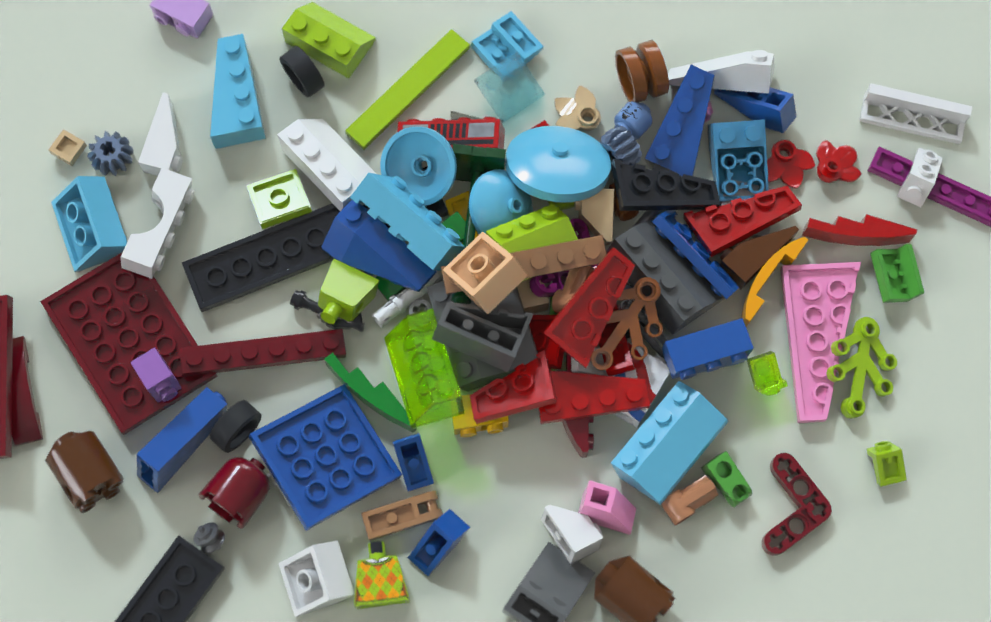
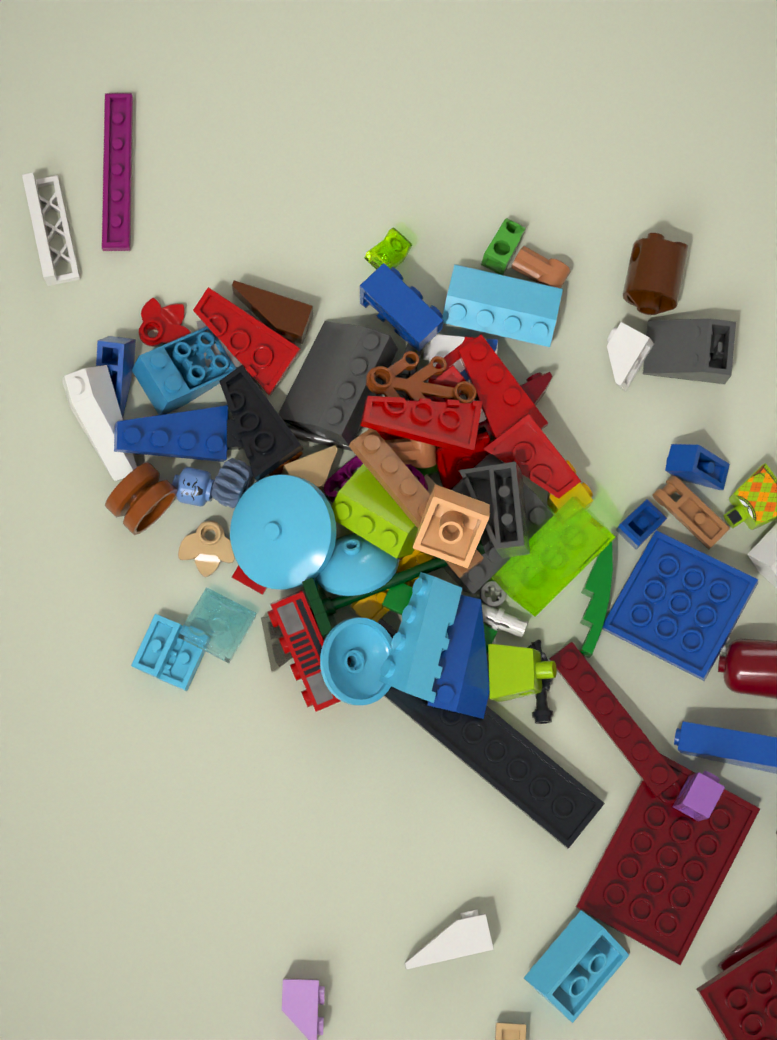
camera: 120 degrees left, 5 degrees up
(107, 145) = (486, 983): sand blue gear -> none
(145, 250) = (506, 898): white arch -> none
(235, 100) = (373, 891): medium azure wedge -> none
(235, 426) = (698, 702): black tyre -> none
(279, 198) = (452, 790): tile -> none
(302, 71) = (309, 839): black tyre -> none
(324, 159) = (391, 755): white slope -> none
(327, 38) = (251, 837): lime slope -> none
(407, 89) = (267, 728): lime tile -> none
(607, 507) = (589, 335): bright pink slope -> none
(681, 237) = (295, 390): blue wing -> none
(786, 256) = (329, 294): light orange slope -> none
(804, 512) = (497, 170): dark red beam -> none
(816, 316) = (314, 230): bright pink wing -> none
(836, 163) = (135, 278): red plate -> none
(863, 364) = (334, 176): lime plant -> none
(868, 232) = (199, 222): red slope -> none
(887, 463) = (414, 117): lime bracket -> none
(897, 274) = (229, 178): bright green bracket -> none
(921, 177) = (114, 193): white bracket -> none

